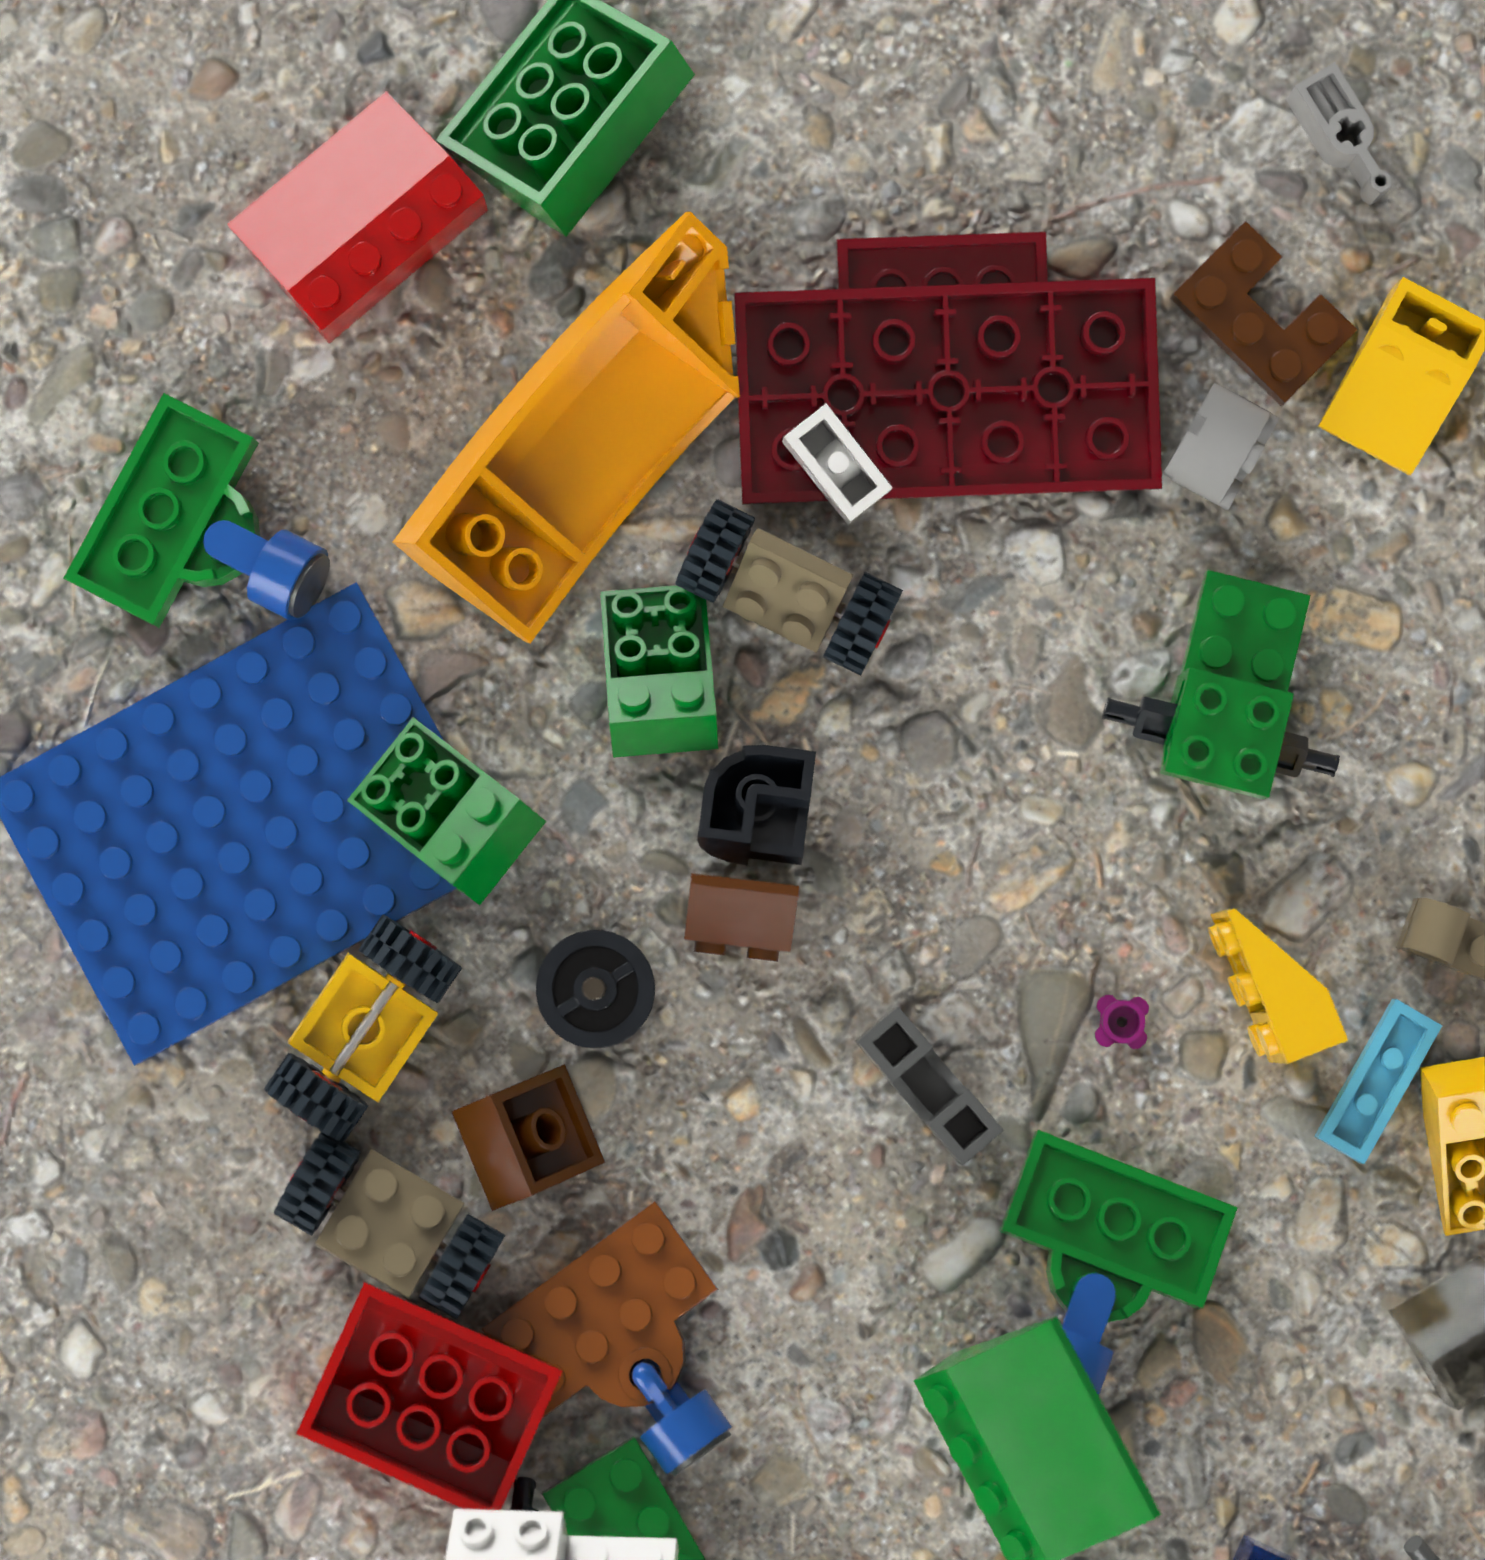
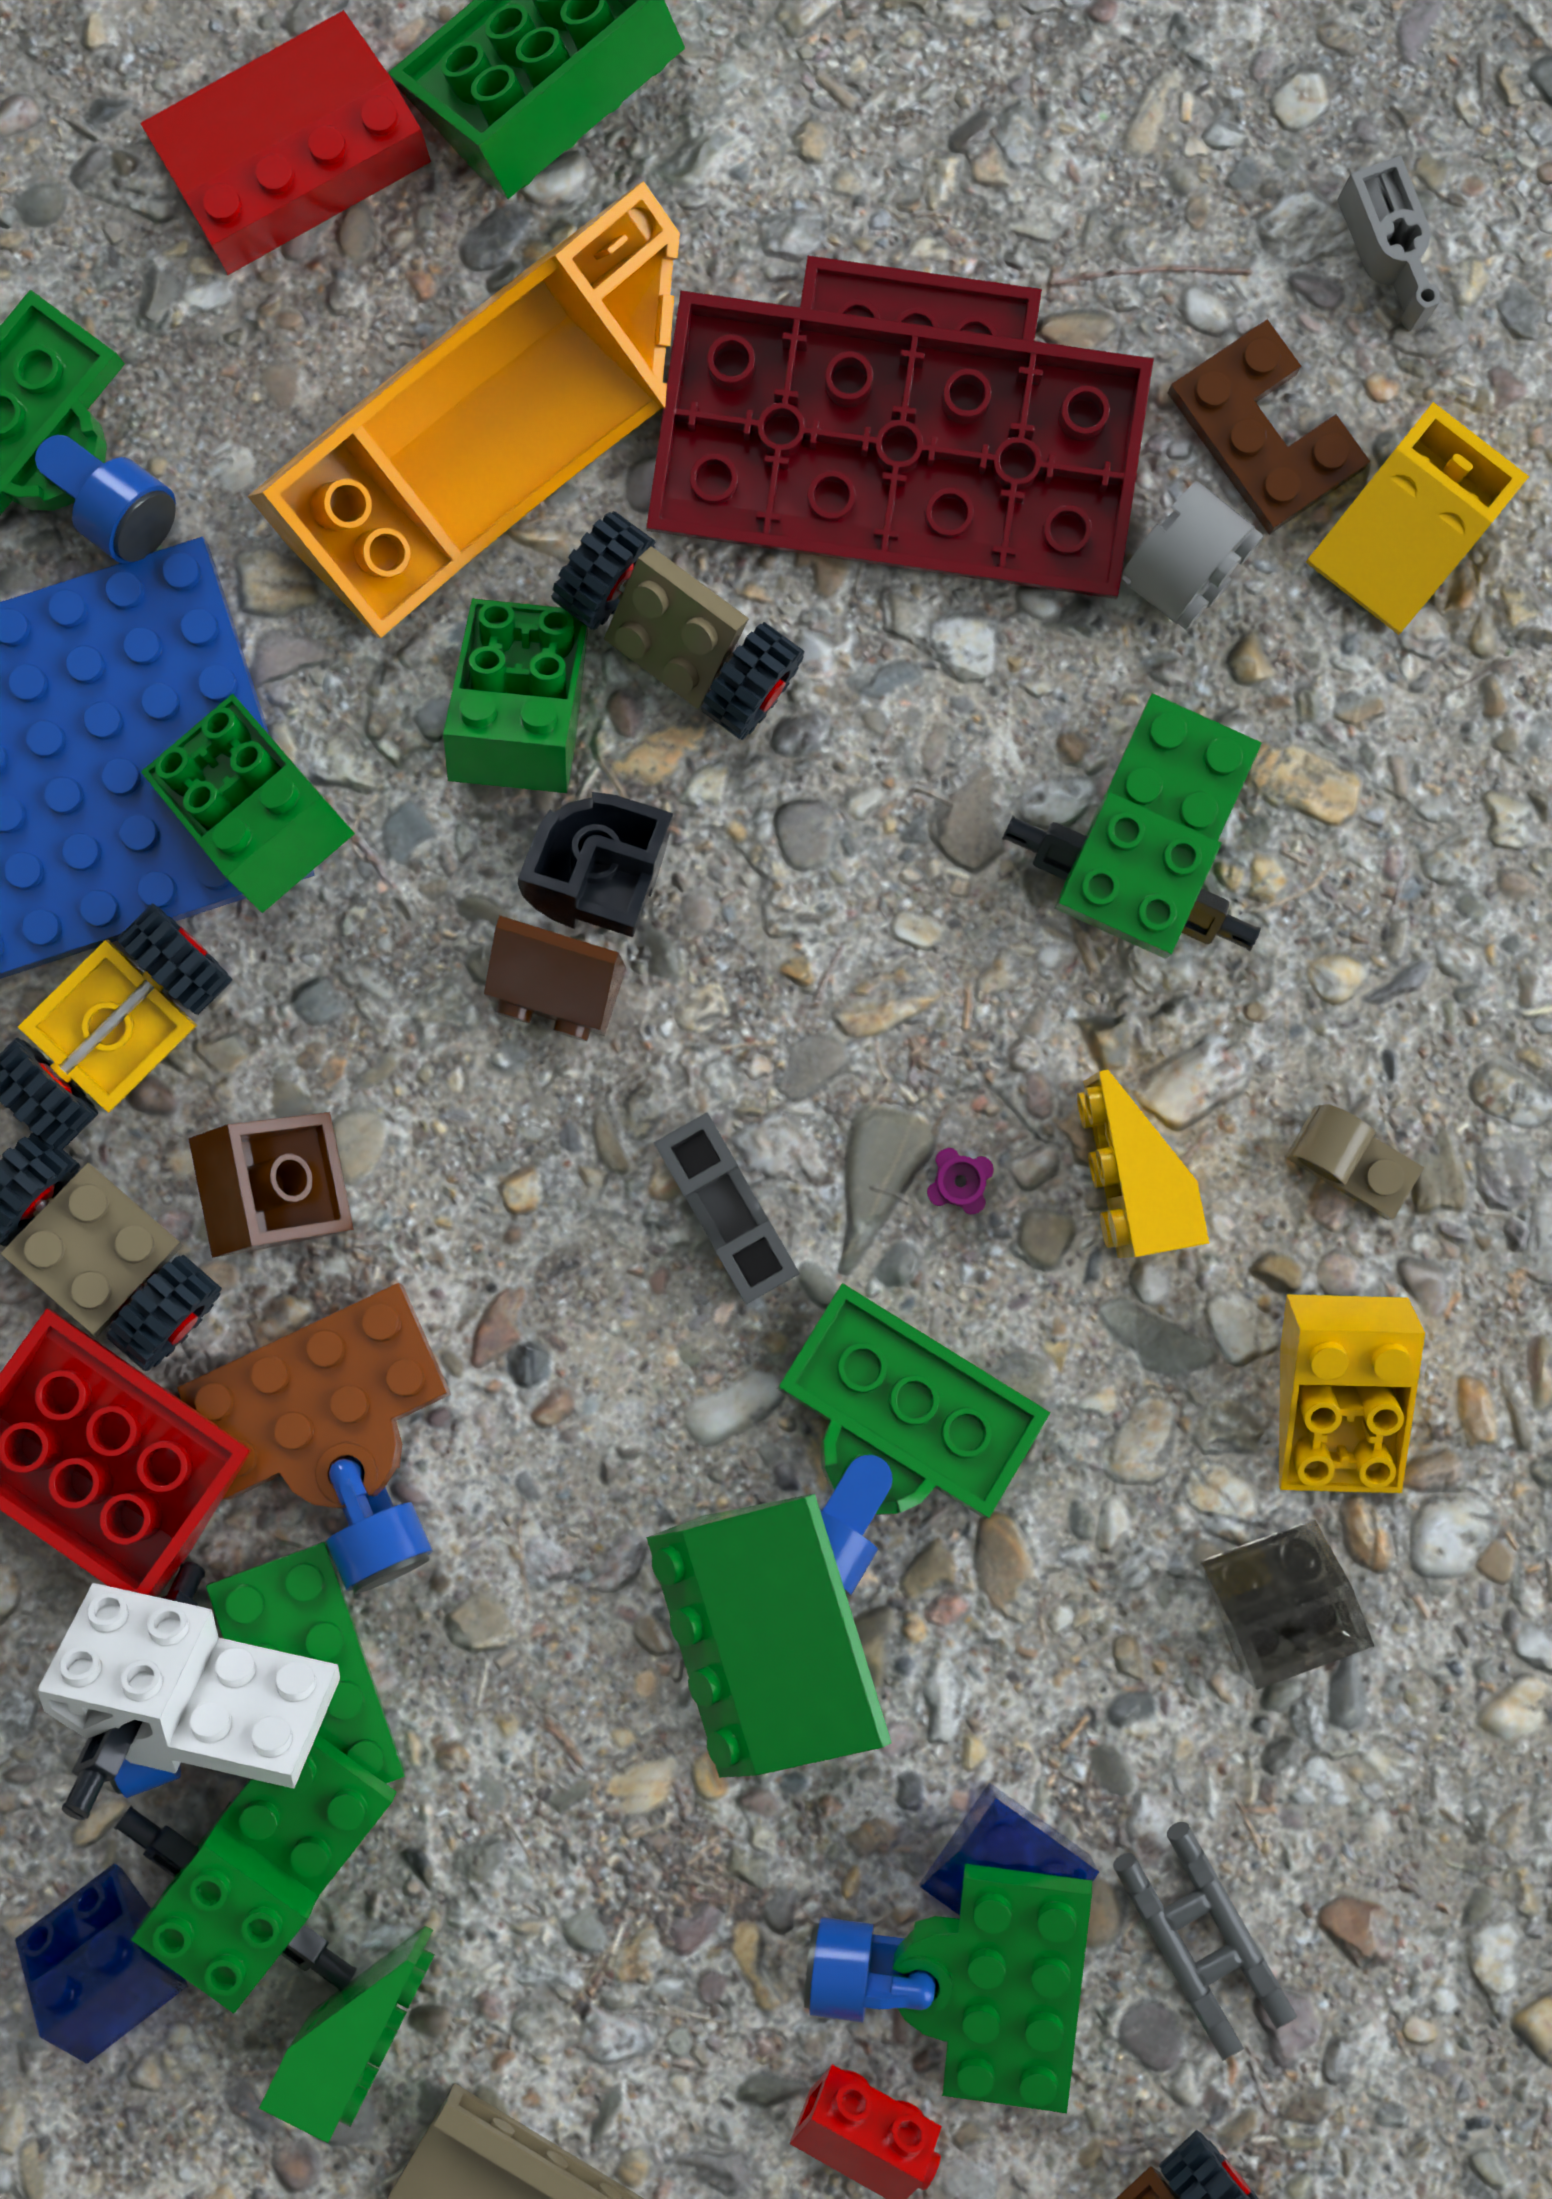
camera: 20 degrees right, 0 degrees up
(595, 989) = (375, 1032): black wheel -> none
(836, 464) = (755, 494): white brick -> none
(1378, 1081) = (1236, 1301): medium azure plate -> none

